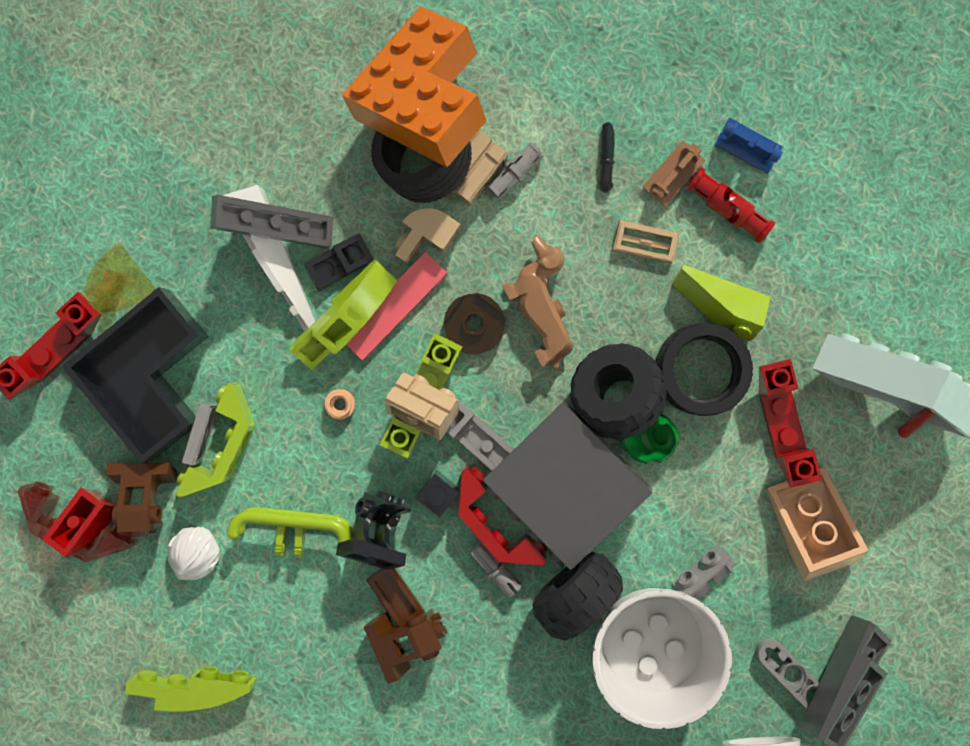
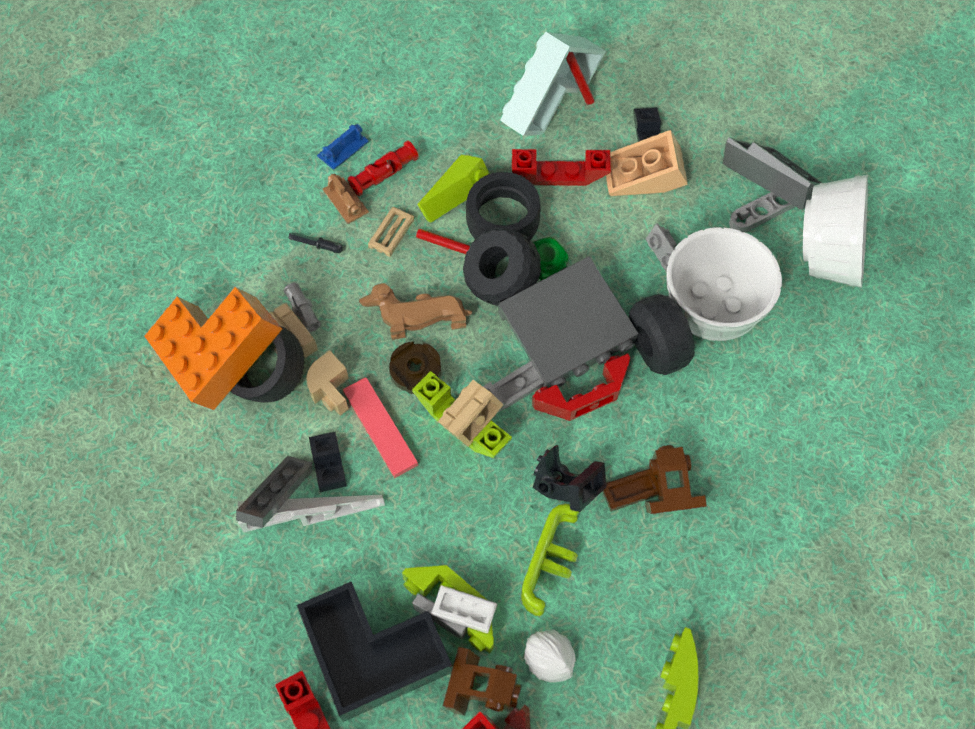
camera: 80 degrees left, 25 degrees down
(116, 282) = (275, 660): clear yellow shield -> none
(202, 459) = (464, 609): none -> white plate
(330, 407) = (450, 483): light nougat plate -> none
(346, 315) = (378, 462): lime slope -> none
(438, 493) = (549, 426): black brick -> none
(495, 570) = (626, 401): light grey axle -> none
(648, 312) = (442, 241): none -> red bar
(881, 513) = (646, 122): none -> black slope

